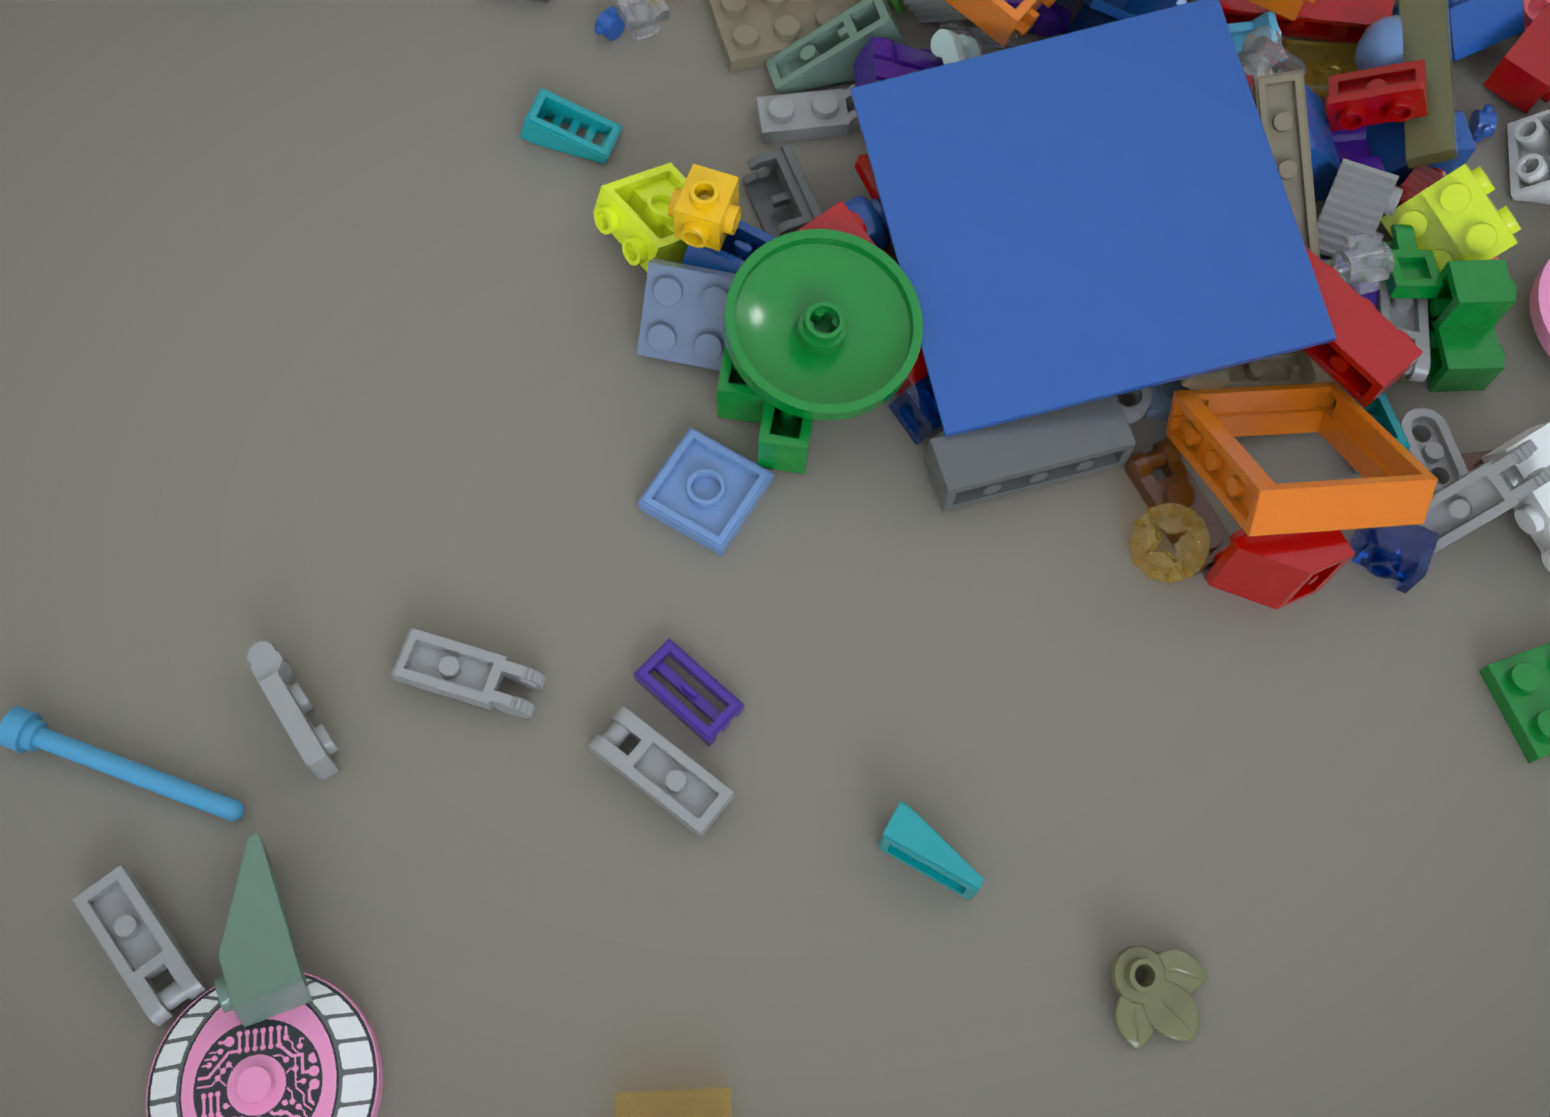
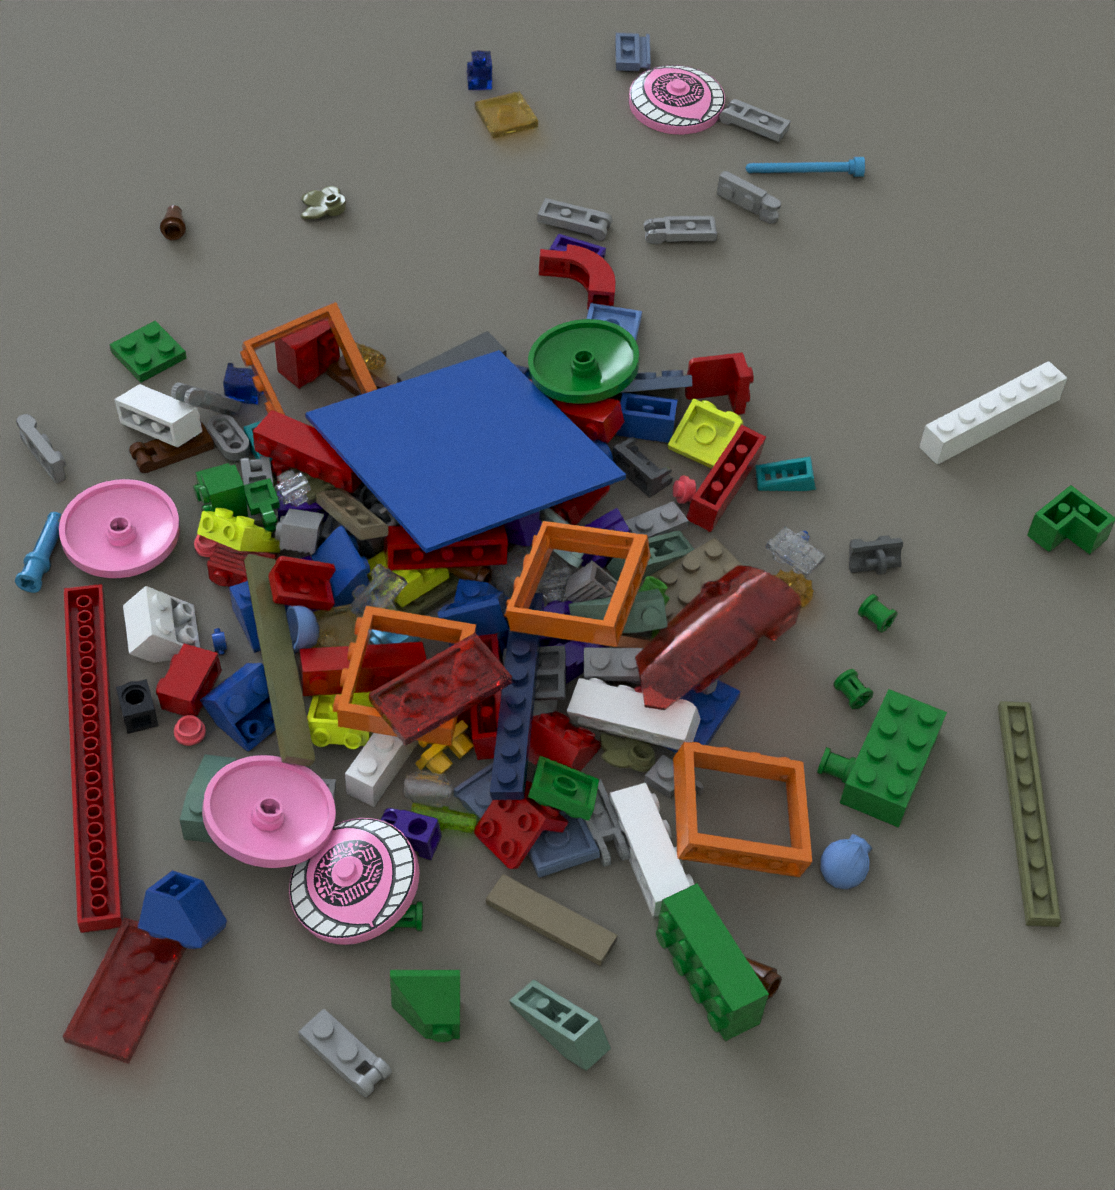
camera: 160 degrees right, 15 degrees down
(187, 116) = (992, 412): none -> white brick
(258, 946) = (702, 117): sand green slope -> none
(586, 286) = (720, 377): none -> red bracket
(674, 118) = (726, 478): none -> red brick
(687, 576) = (583, 267): none -> red arch
(706, 208) = (675, 390): yellow brick -> none
(738, 142) = (684, 489): none -> coral plate
(923, 849) = (447, 219): teal slope -> none
(1484, 1025) = (173, 224): none -> reddish brown cone

